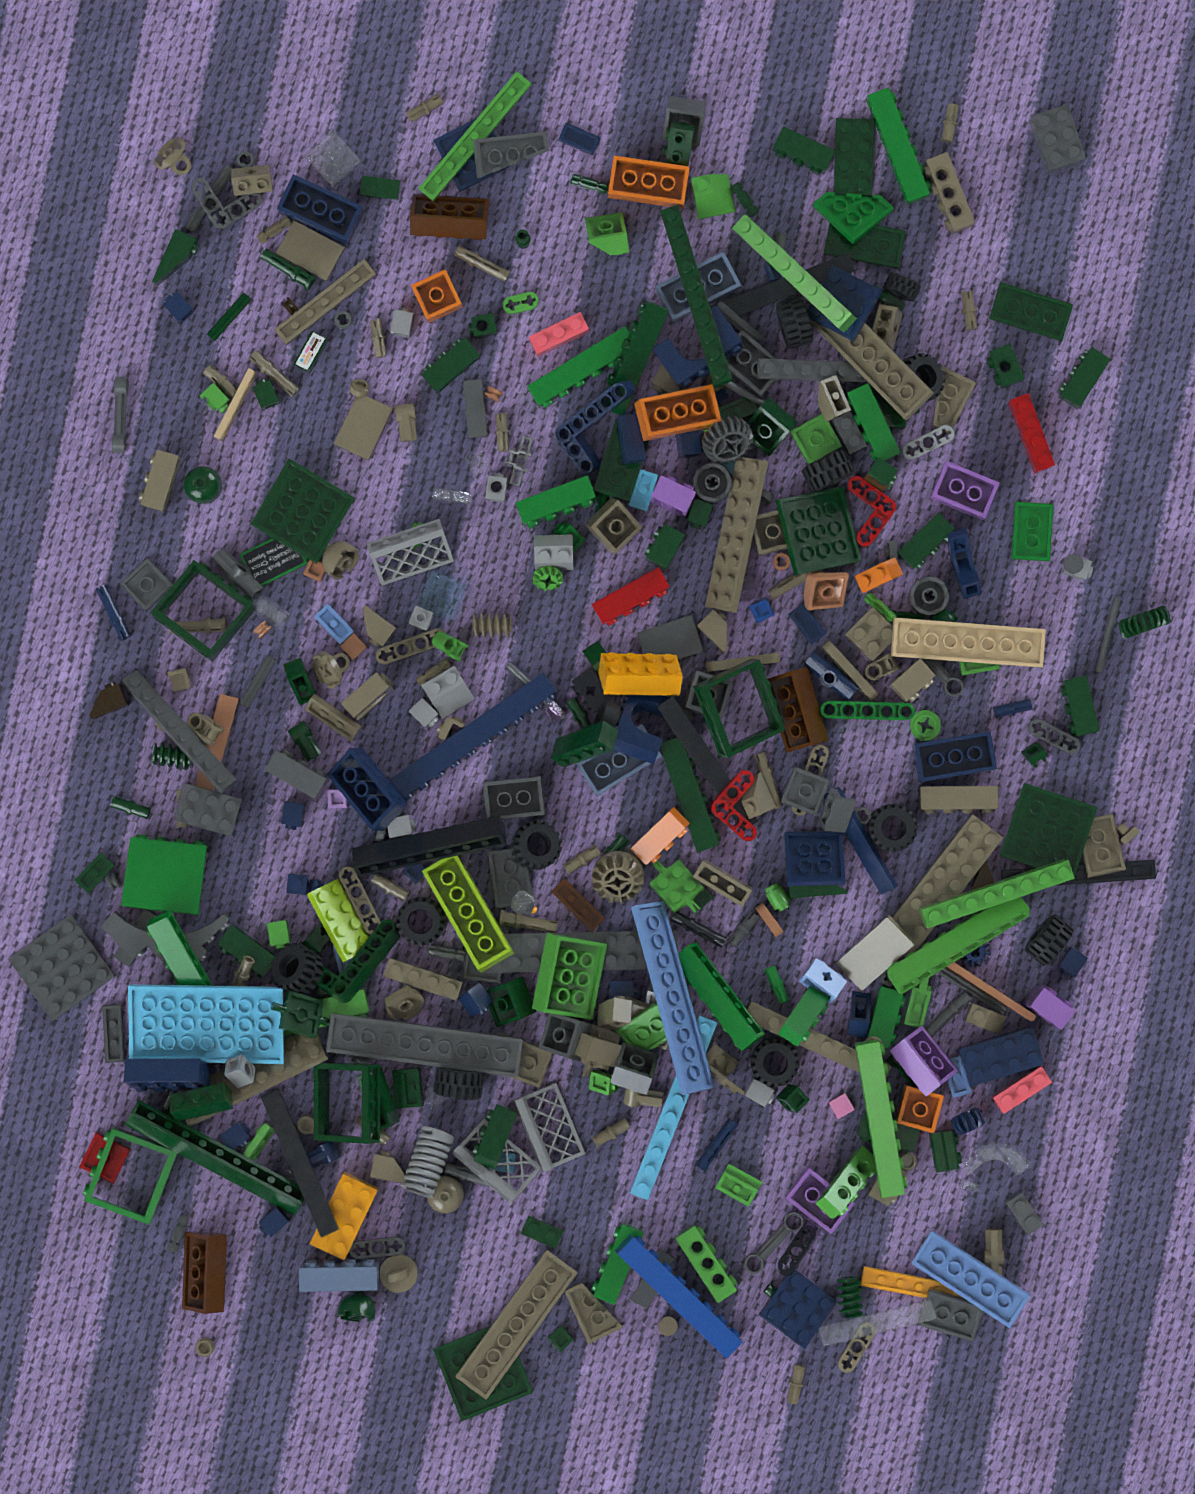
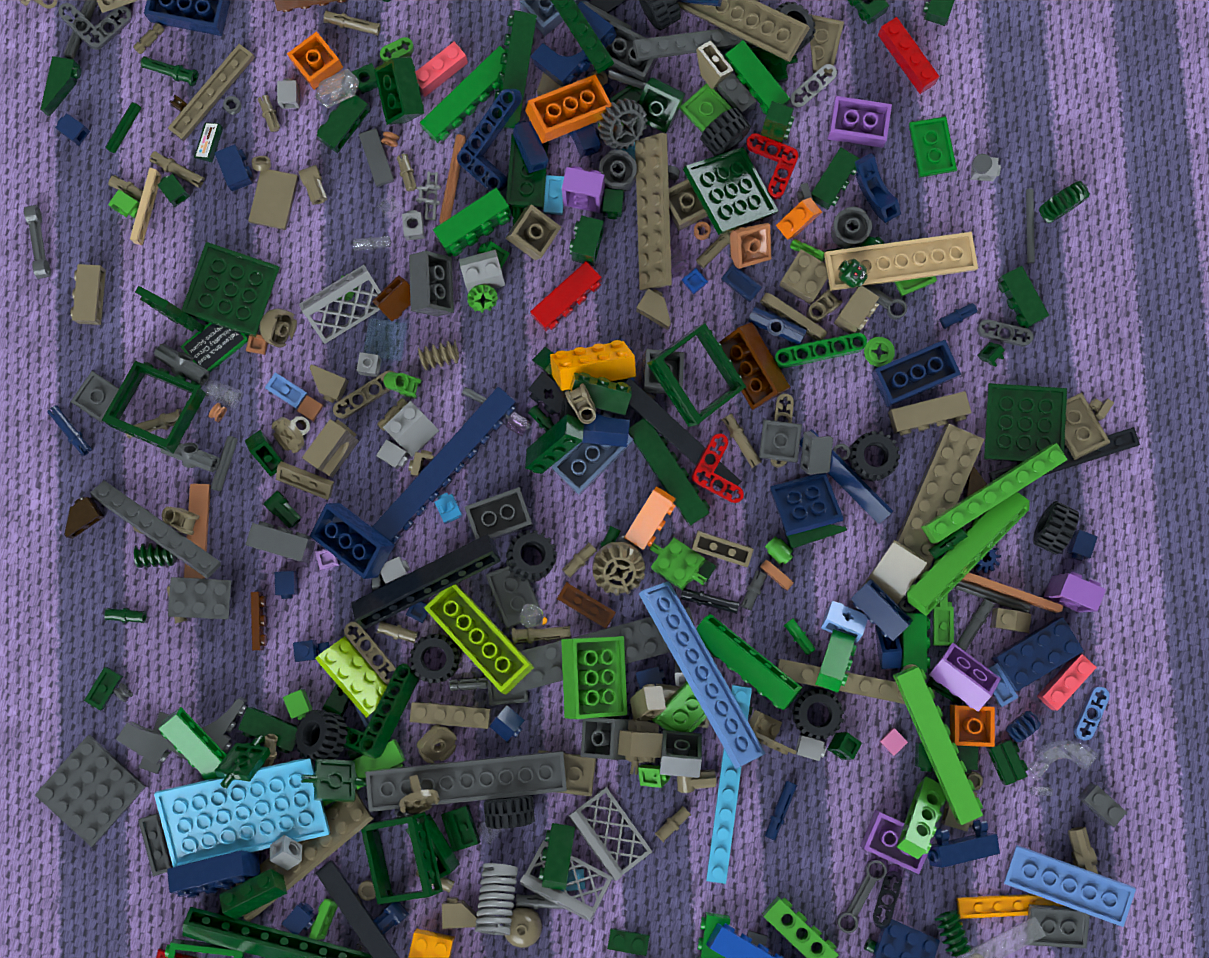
camera: 15 degrees left, 5 degrees down
(164, 875) = (171, 674): green panel -> none
(180, 679) = (148, 478): dark tan panel -> none
(203, 485) = (124, 288): dark green cylinder -> none
(218, 976) = (242, 762): none -> dark green plate
(229, 669) = (192, 457): none -> dark grey piece
(240, 523) = (169, 310): none -> dark green plate
(258, 844) = (258, 621): none -> reddish brown plate
(310, 250) = (187, 49): dark tan tile -> none
(331, 386) = (234, 168): none -> dark blue brick
(376, 1052) = (419, 799): none -> dark tan tile
(452, 332) = (337, 88): none -> clear brick
(462, 558) = (394, 298): none -> reddish brown brick
(466, 778) = (448, 508): none -> dark azure brick
(501, 553) = (431, 283): none -> dark grey brick
(510, 1001) = (542, 717): dark green slope -> none
(513, 351) = (399, 90): none -> dark green brick
(545, 451) = (452, 180): none -> nougat axle
(620, 711) = (579, 401): none -> dark tan piece
(640, 706) = (604, 394): none -> dark green brick
(673, 638) = (618, 324): dark grey tile -> none
(729, 663) = (666, 341): dark tan beam -> none
(738, 1184) = (812, 846): bright green plate -> none
(757, 798) = (736, 459): dark tan slope -> none
(860, 978) = (881, 610): none -> dark blue brick
(880, 1221) = (963, 849): none -> dark blue brick
(915, 646) = (852, 273): none -> dark green head
(937, 931) = (956, 537): none -> dark green pin
(1050, 1116) = (1083, 716): none -> medium blue beam

